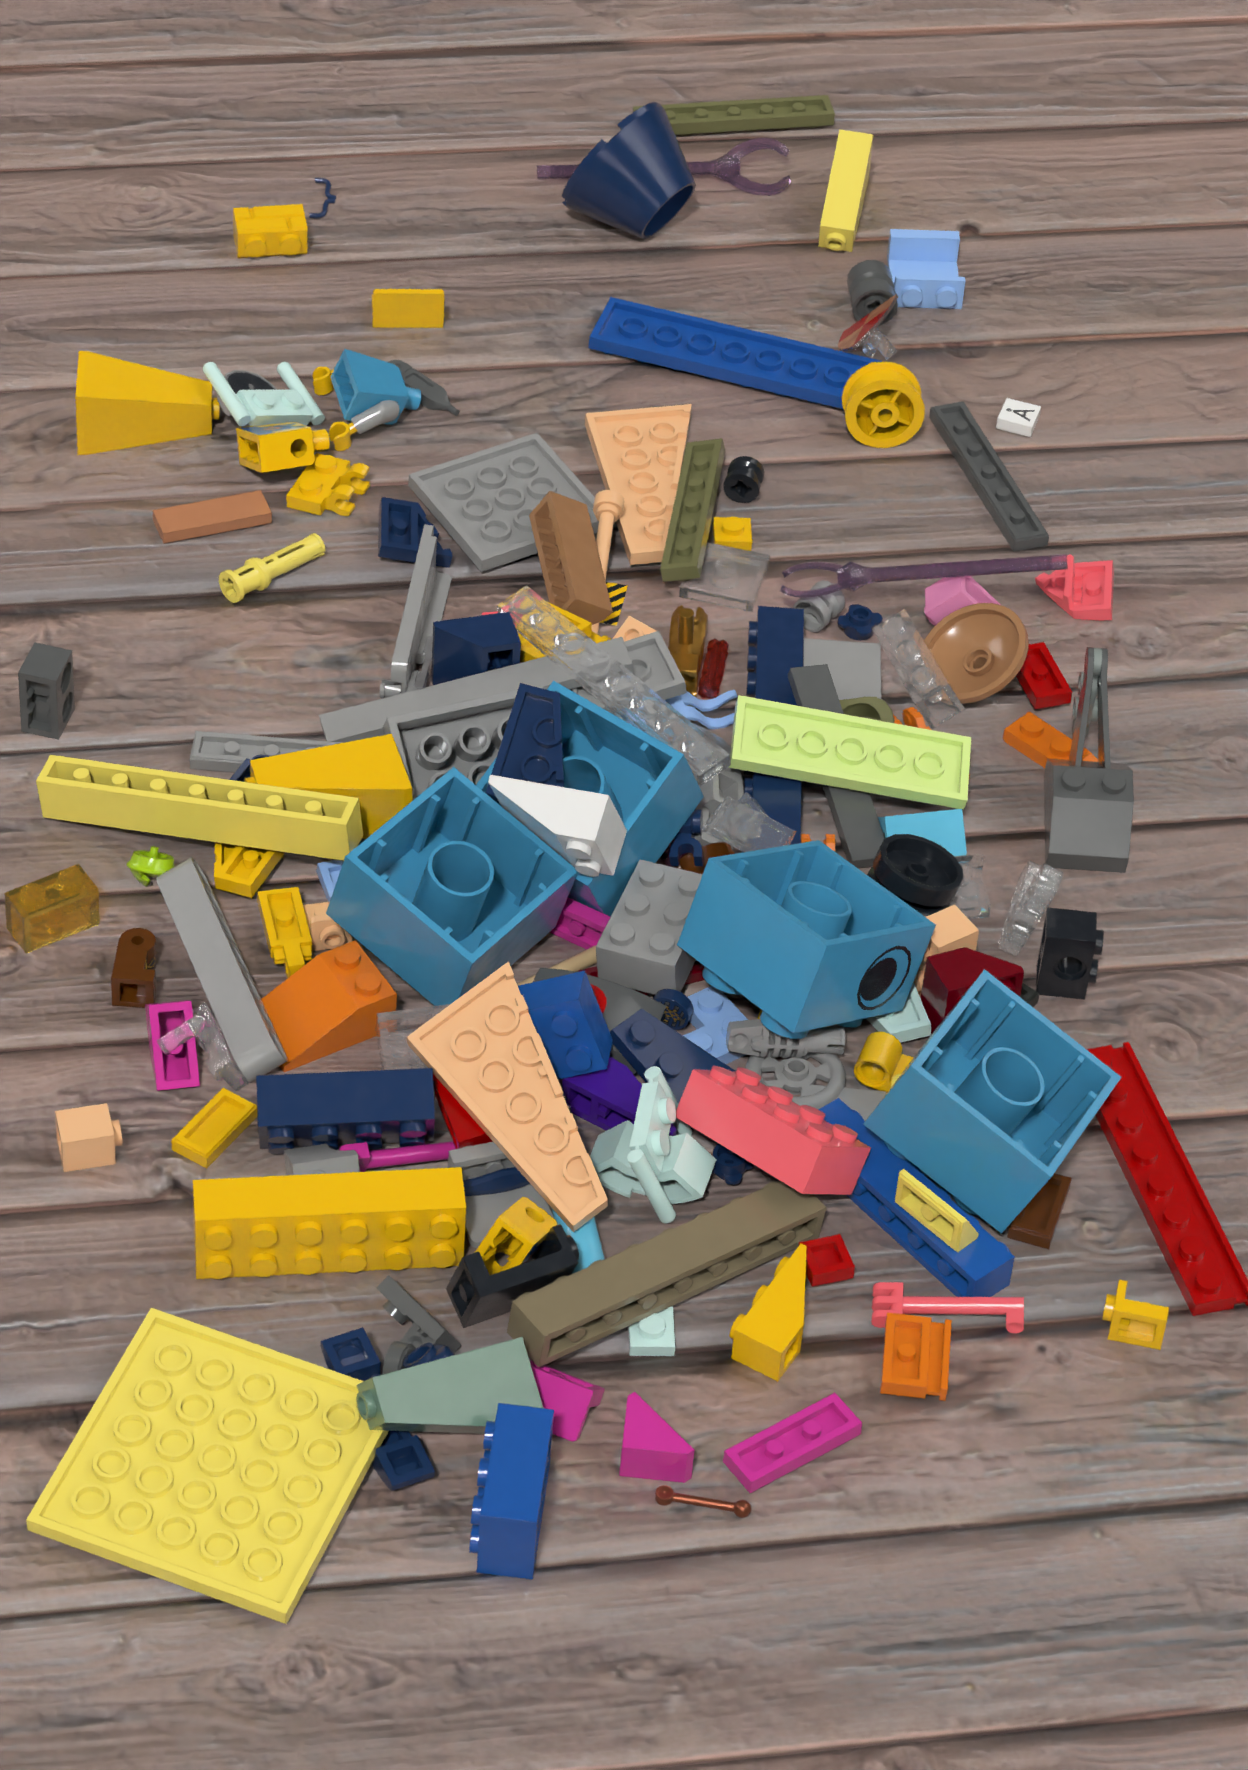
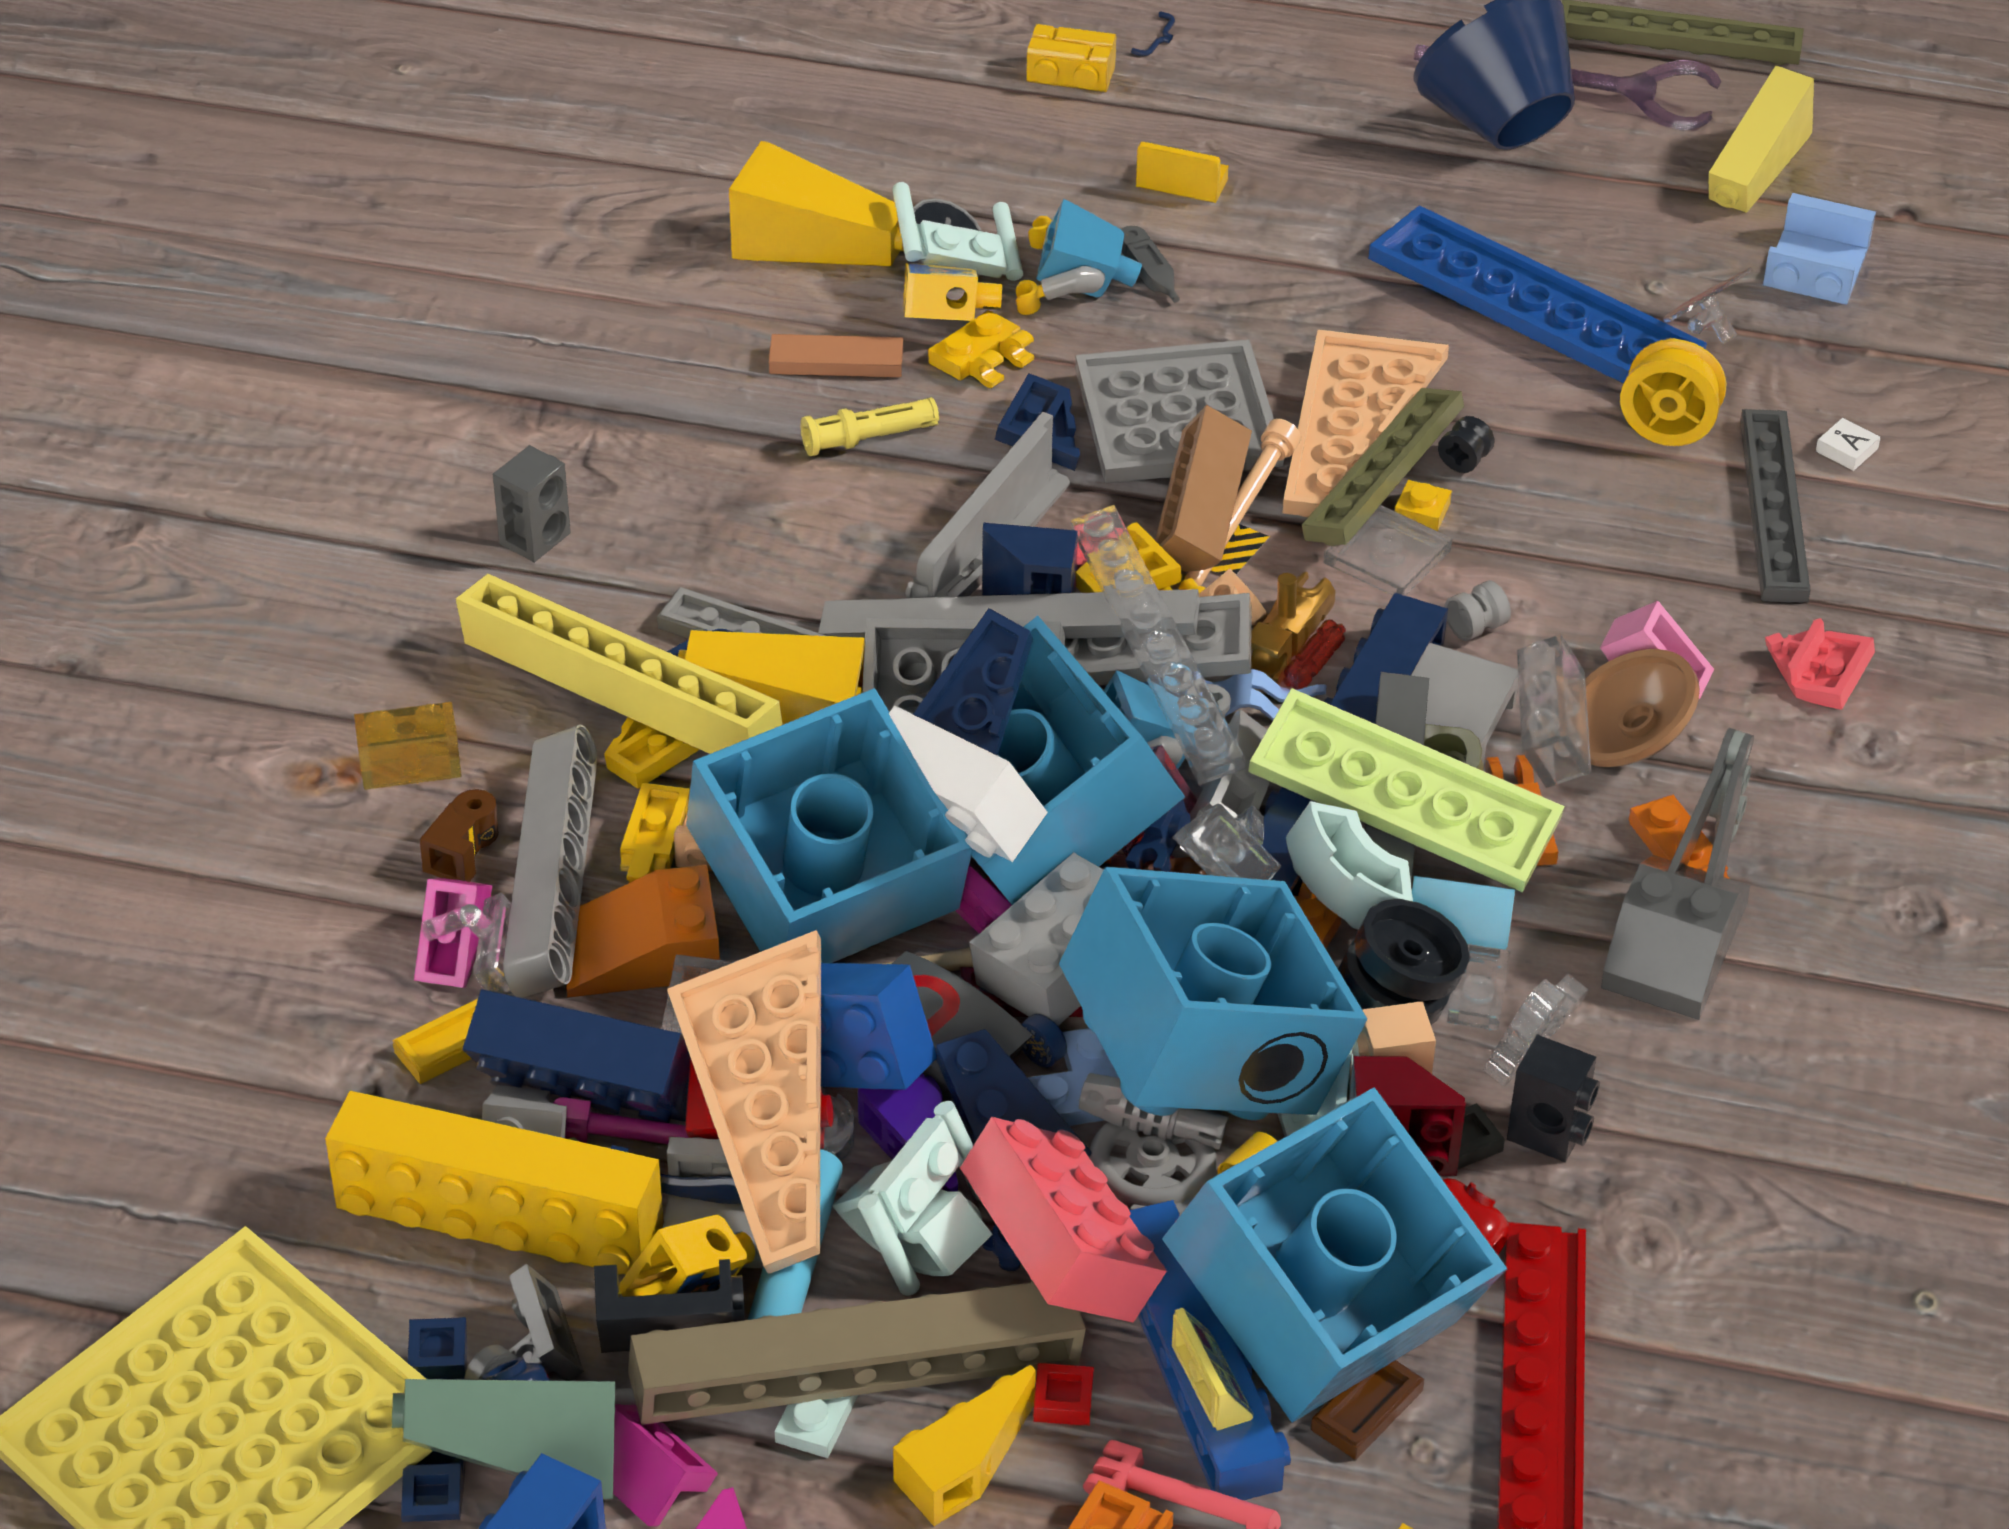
camera: 25 degrees right, 0 degrees up
(87, 1137) = (298, 1012): light nougat brick -> none
(149, 864) = (543, 721): lime hat -> none
(840, 819) = (1344, 863): none -> light aqua brick
(854, 576) = (1526, 584): clear purple piece -> none
(859, 622) = (1516, 636): dark blue plate -> none
(869, 287) = (1733, 251): dark grey wheel -> none
(1043, 679) = (1701, 747): red plate -> none

